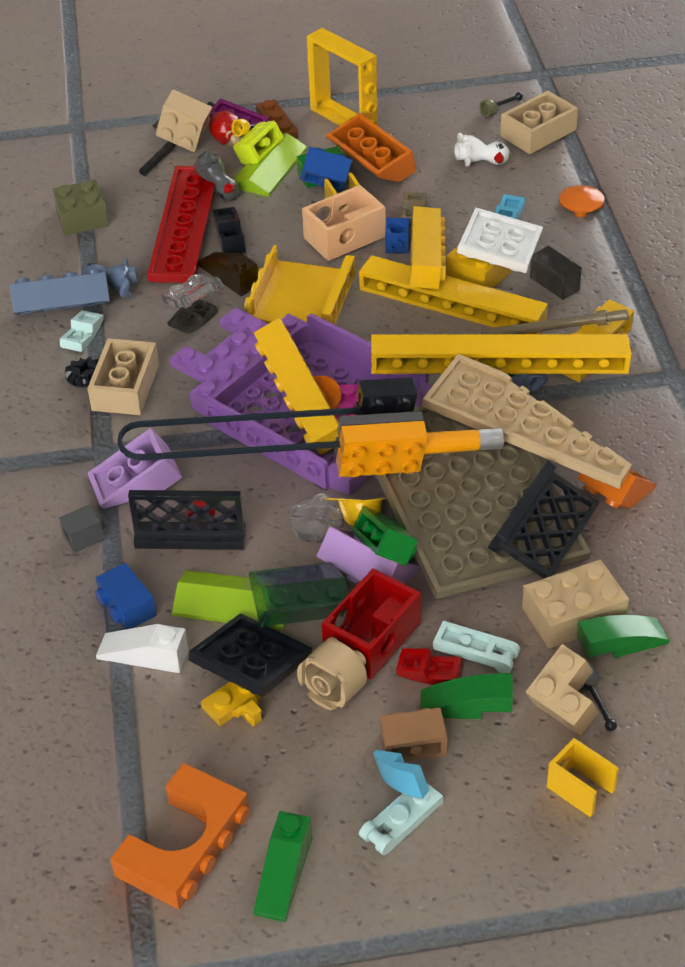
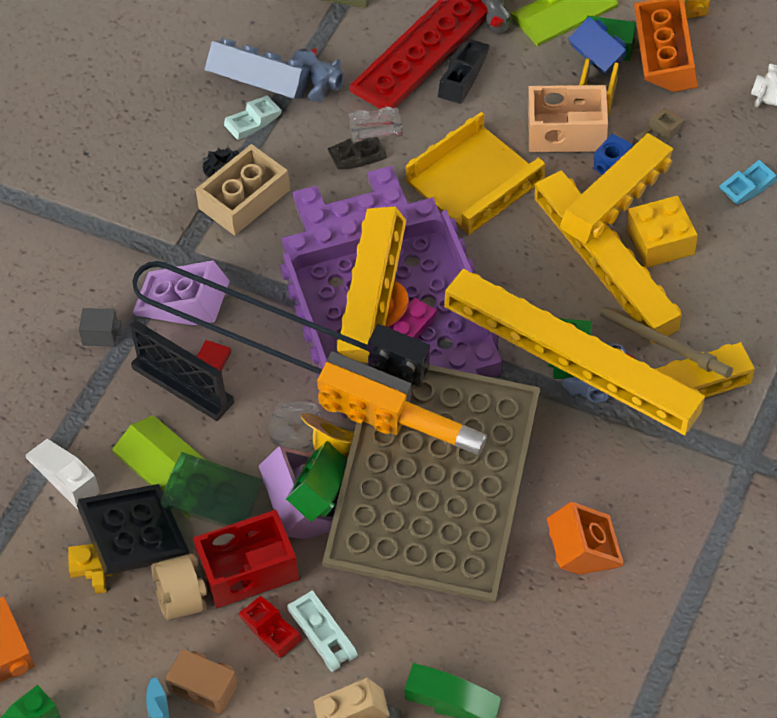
camera: 35 degrees right, 10 degrees up
(125, 597) = (83, 414): blue brick -> none
(233, 269) = (428, 117): dark brown slope -> none
(470, 696) = (275, 674): green slope -> none
(489, 400) = (517, 413): tan wing -> none
(500, 240) = (686, 220): white plate -> none
(522, 514) = (459, 524): black fence -> none
(555, 272) = (727, 280): clear smoke brick -> none
(569, 597) = (435, 638): tan brick -> none

